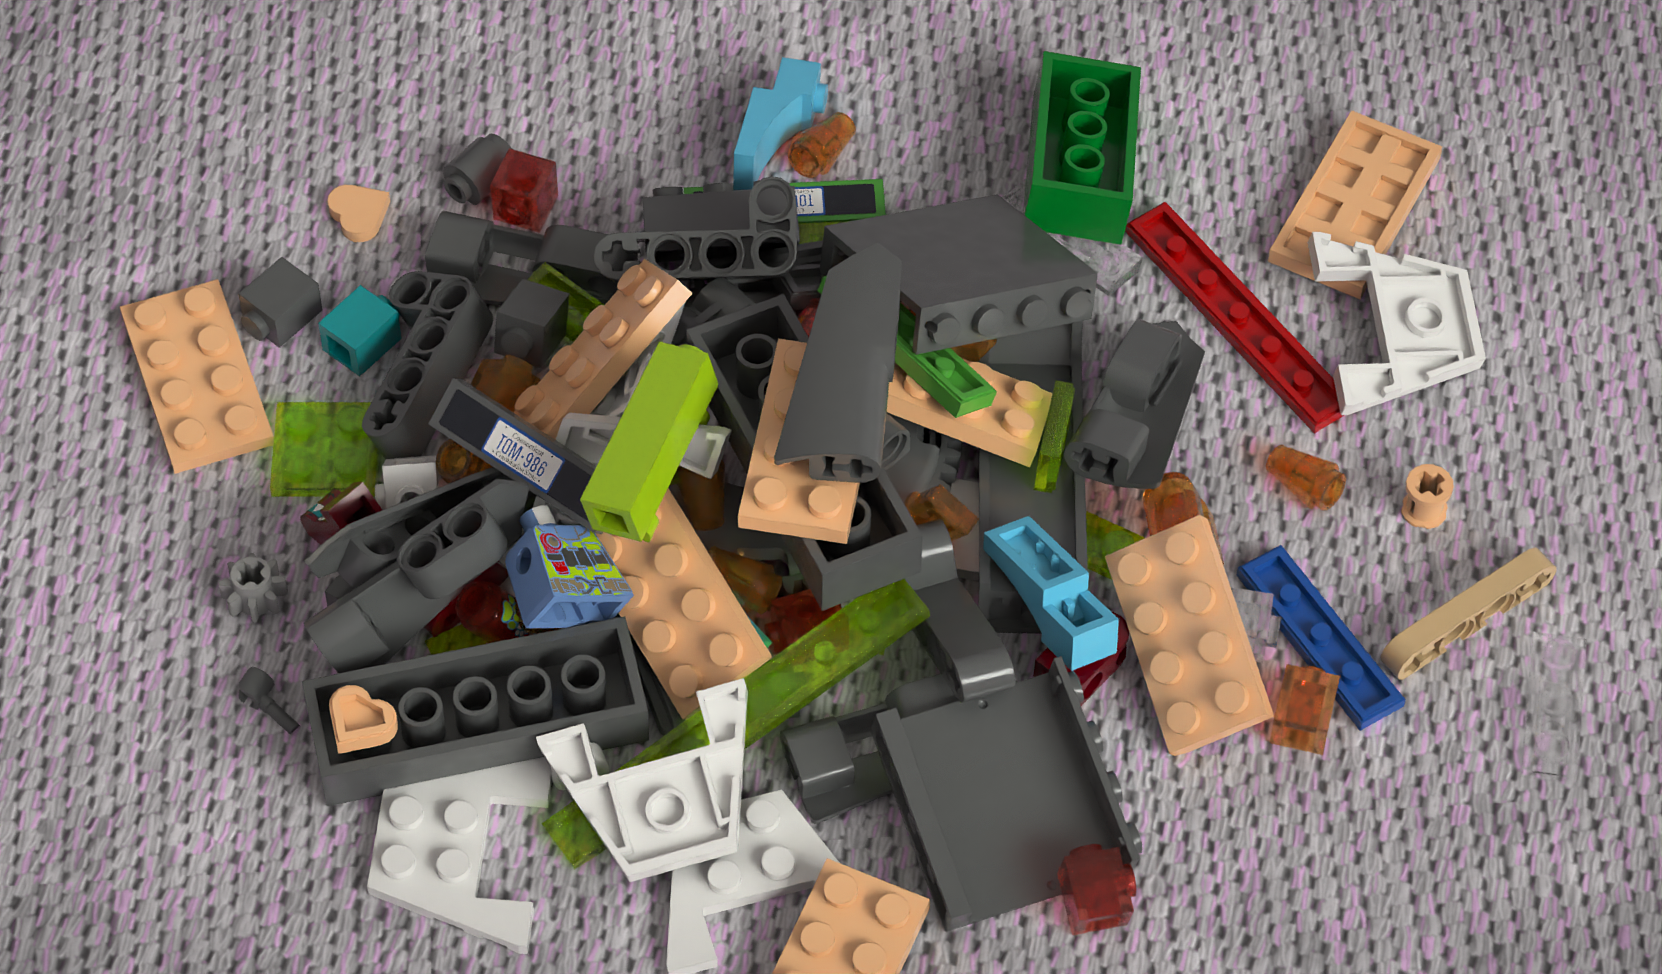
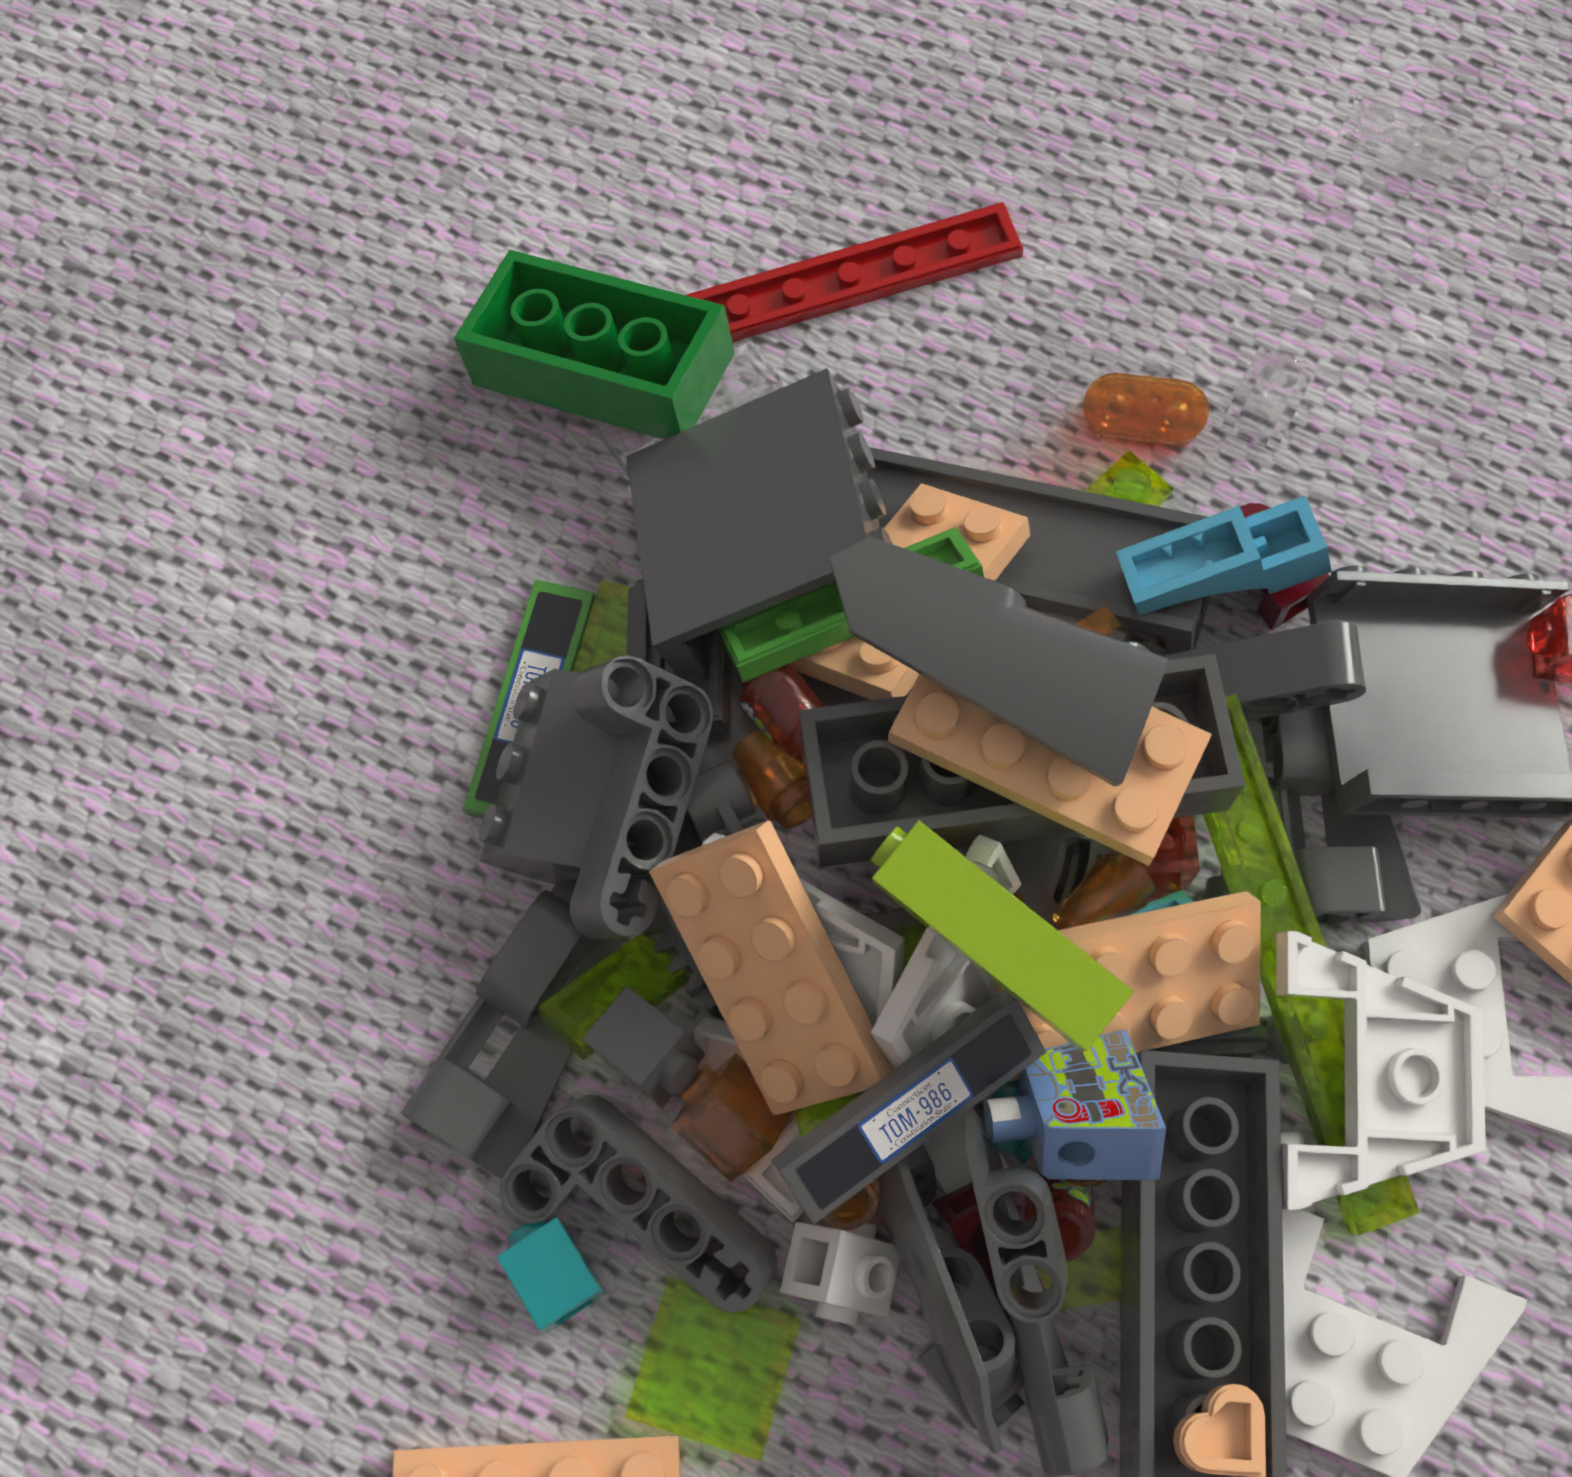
camera: 70 degrees left, 15 degrees up
(279, 303) = (469, 1375): dark grey brick -> none
(338, 510) = (859, 1377): dark red leg -> none
(358, 210) = (343, 1227): light nougat tile -> none
(474, 169) = (344, 1051): dark grey brick -> none
(524, 190) = (406, 1003): clear red brick -> none
(777, 116) = (390, 644): medium azure slope -> none
(820, 145) = (459, 632): clear orange cone -> none
(1054, 437) = (998, 490): clear neon green tile -> none
(1140, 408) = (988, 408): dark grey panel -> none
(1189, 636) = (1294, 439): light nougat plate -> none
(1304, 708) = (1389, 367): clear orange brick -> none
(1307, 477) = (1089, 275): clear orange cone -> none
(1322, 637) = (1293, 327): blue tile -> none
(1357, 194) = (746, 119): light nougat plate -> none
(1420, 318) = (928, 106): white wing -> none
(1427, 496) = (1161, 168): light nougat bush -> none
(1467, 612) = (1306, 184): tan beam -> none

